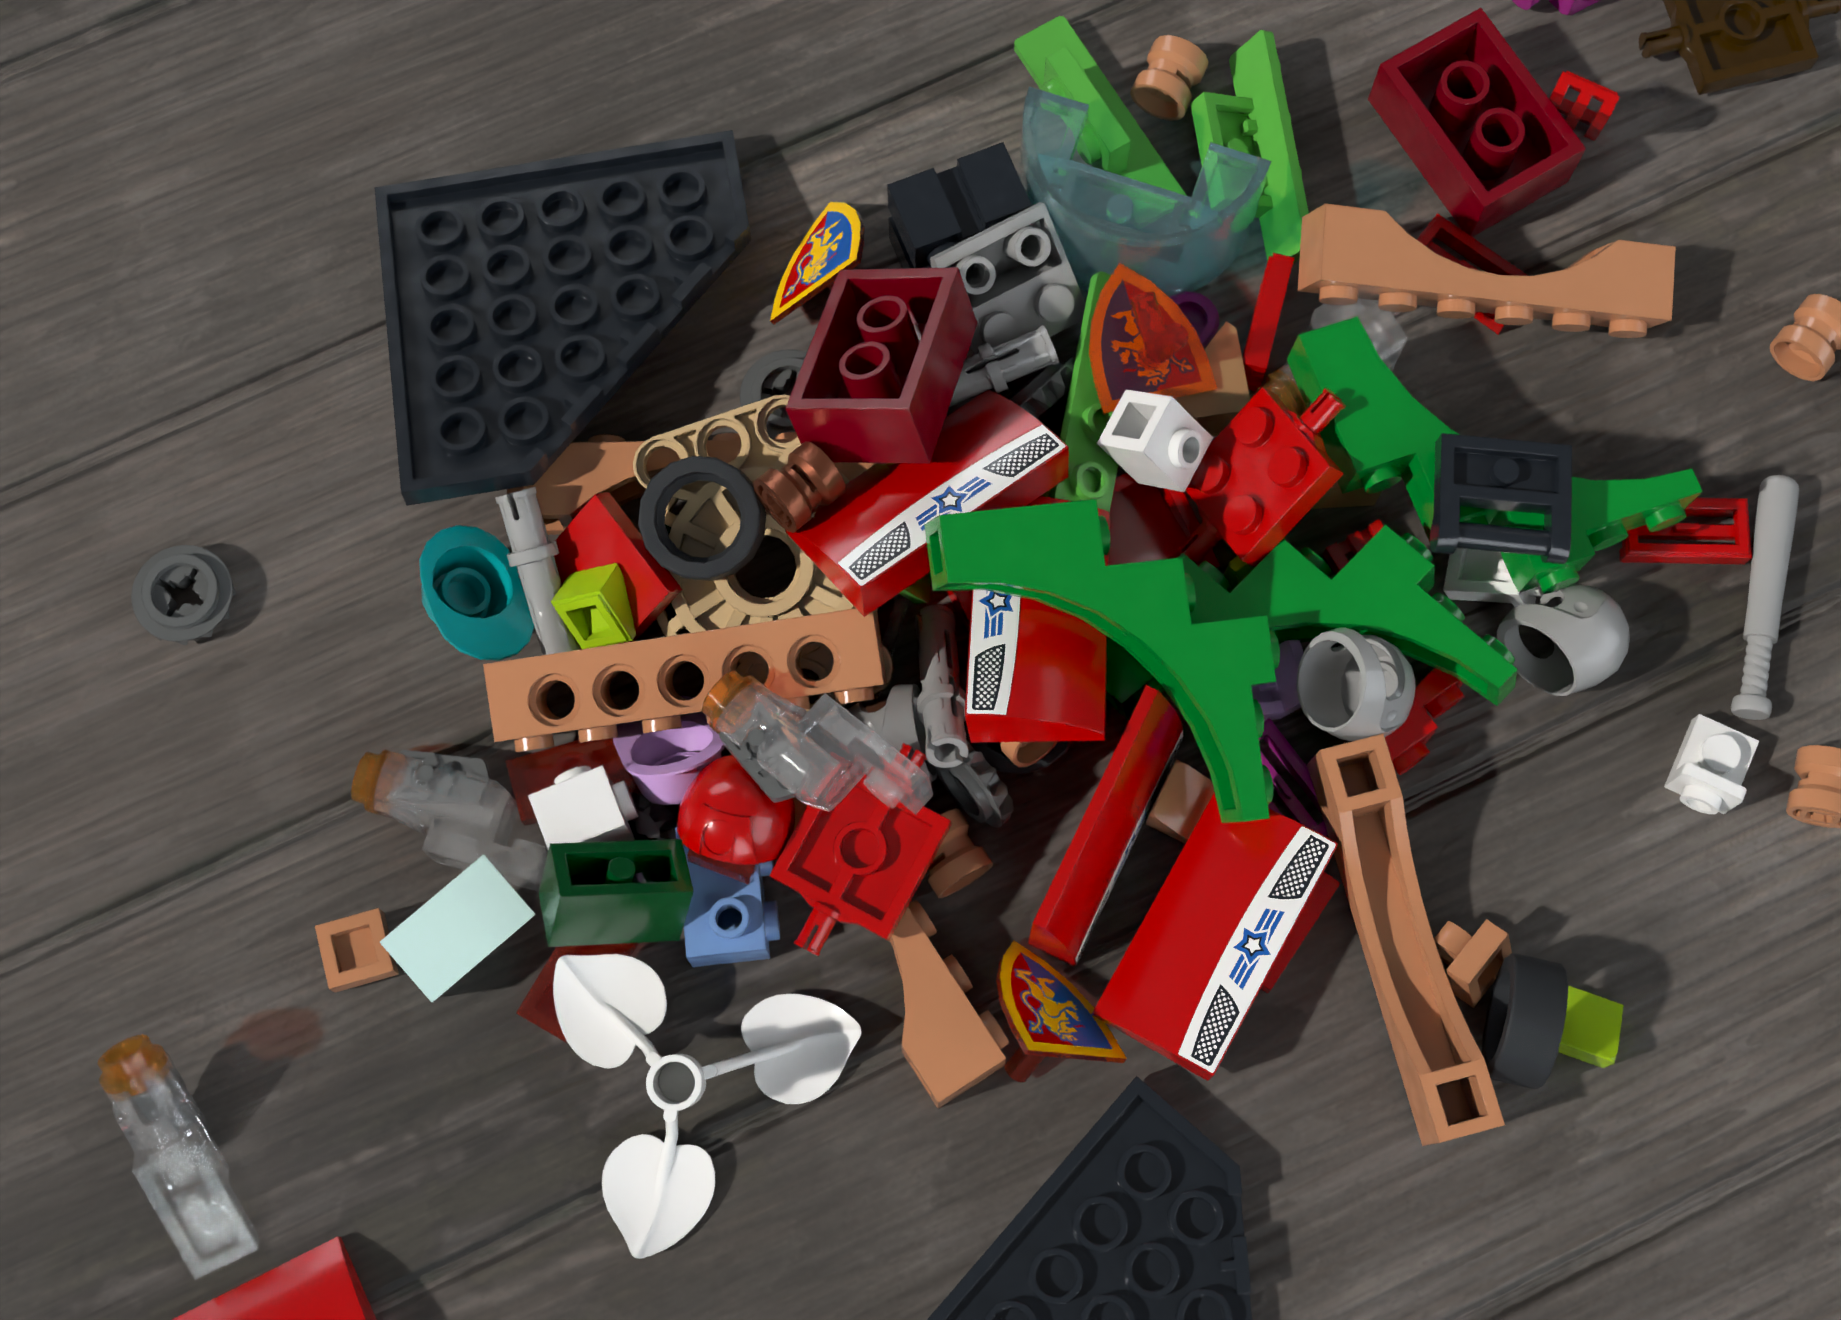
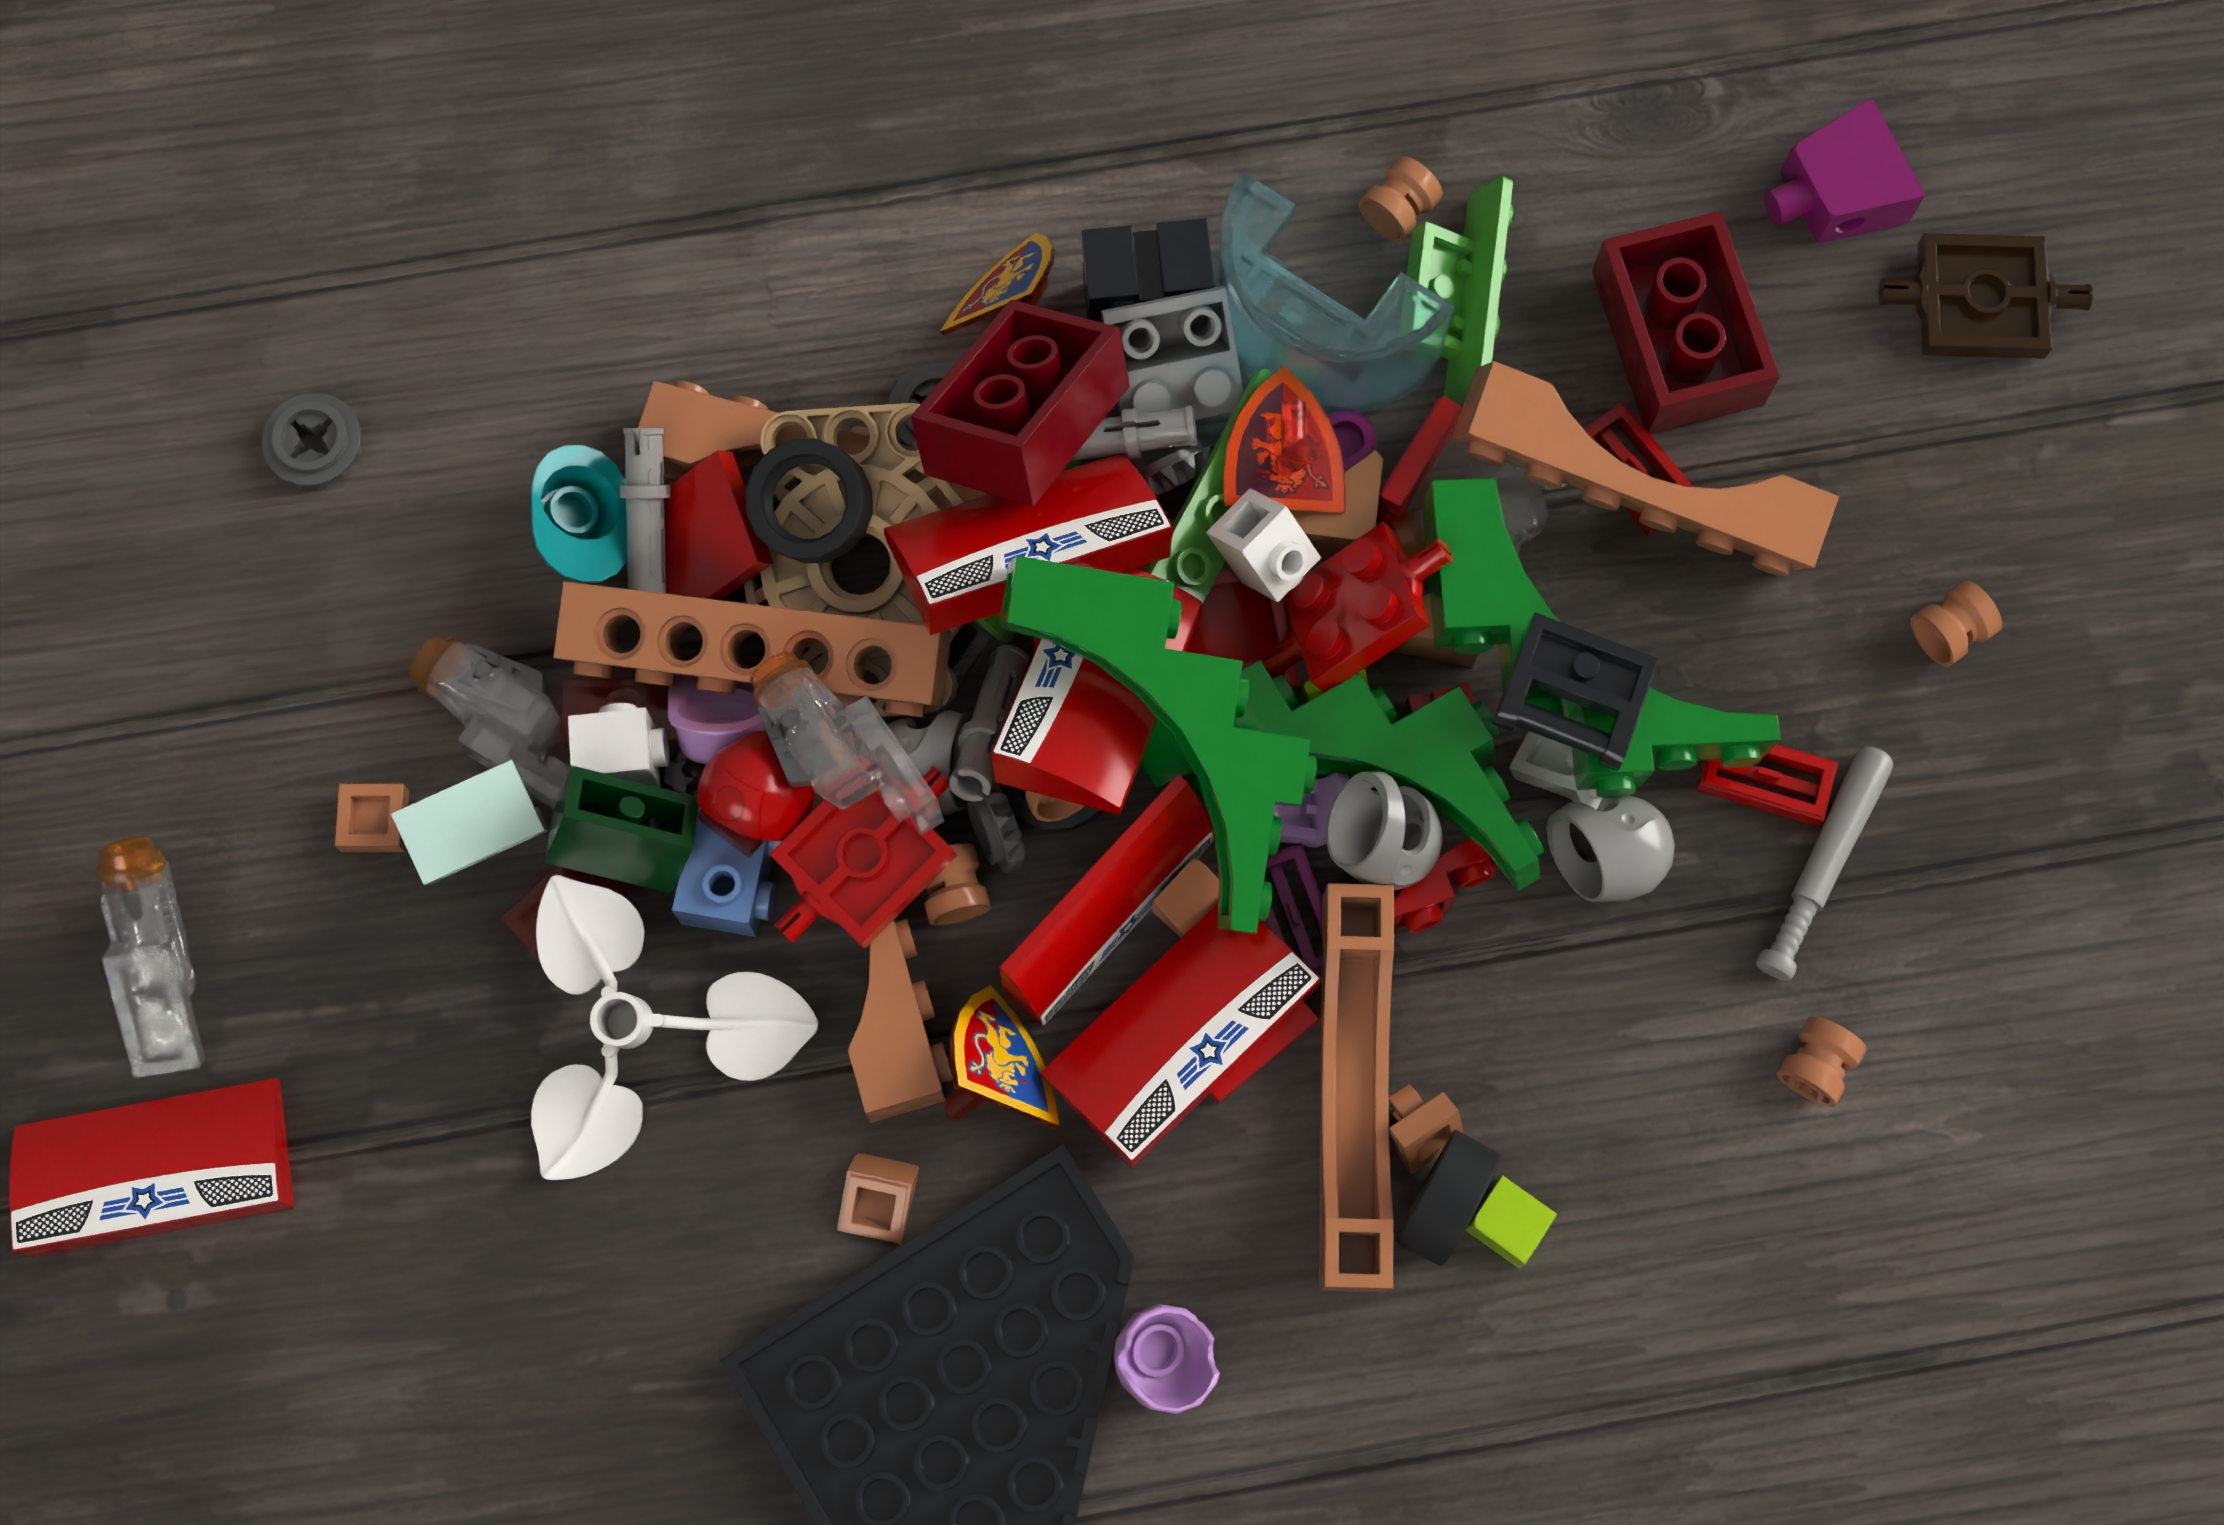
camera: 15 degrees right, 0 degrees up
(538, 296) = (726, 245): black plate -> none
(596, 607) = (688, 557): lime slope -> none
(799, 486) = (905, 495): copper wheel -> none
(969, 1180) = (877, 1197): none -> nougat slope
(1110, 134) = (1321, 228): bright green bracket -> none
(1302, 1258) = (1166, 1359): none -> lavender hair
(1578, 111) = (1773, 321): red tile -> none
(1711, 766) = (1718, 1011): white bracket -> none

